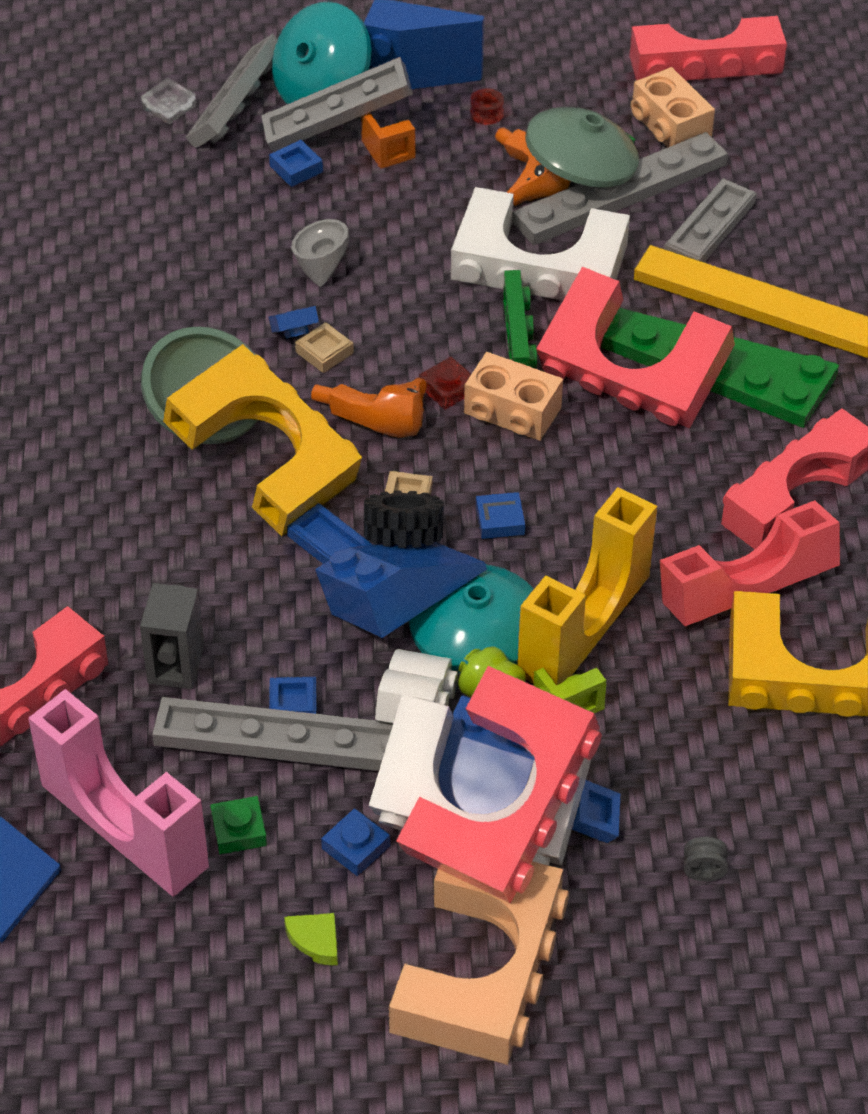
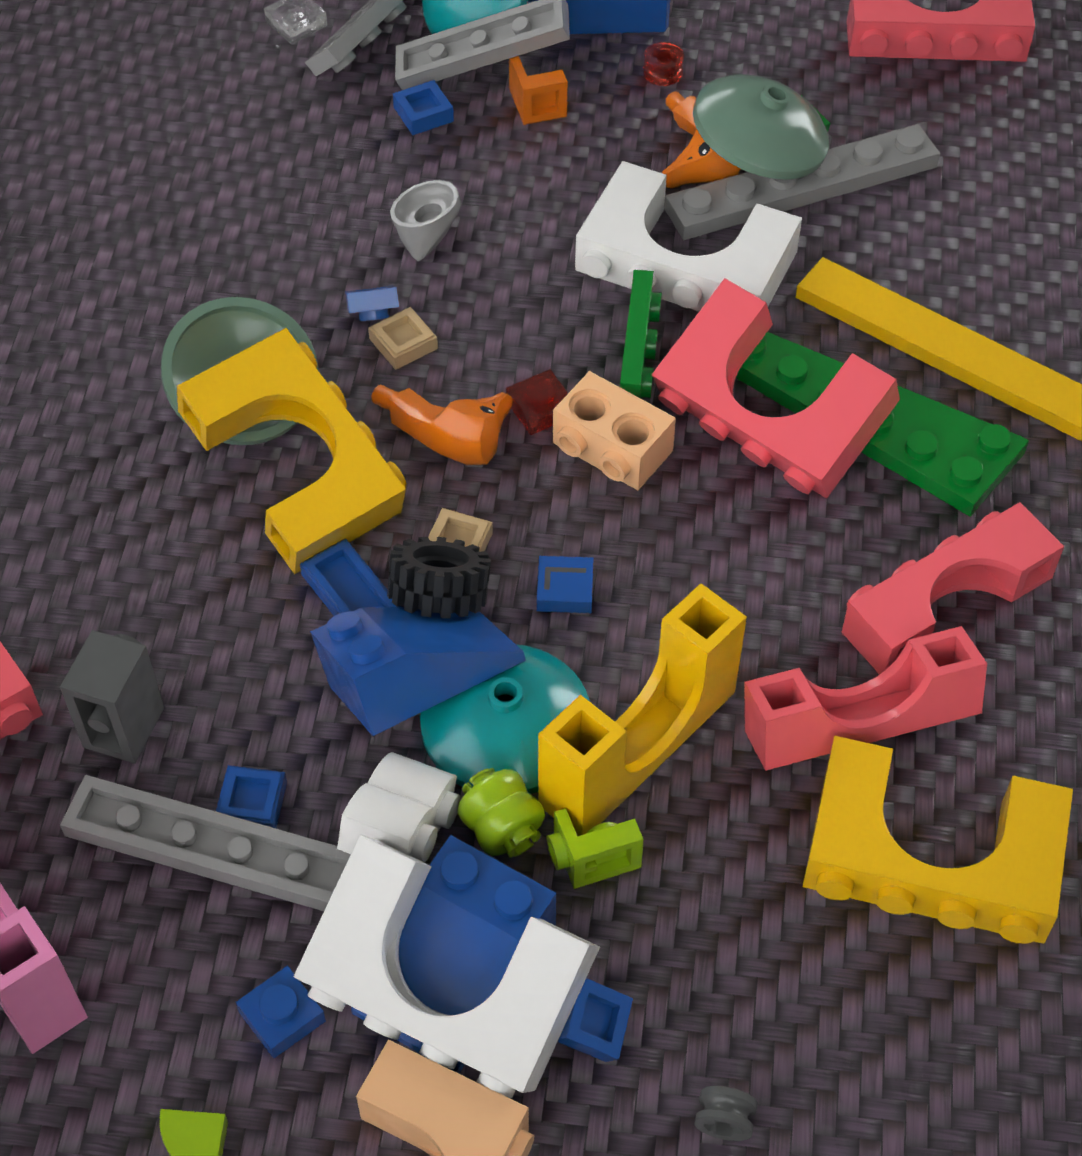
camera: 10 degrees right, 5 degrees up
(238, 825) = (139, 964): green plate -> none
(500, 852) = (439, 1085): coral arch -> none
(671, 107) = (881, 89): light nougat brick -> none
(712, 221) = (904, 236): light grey tile -> none

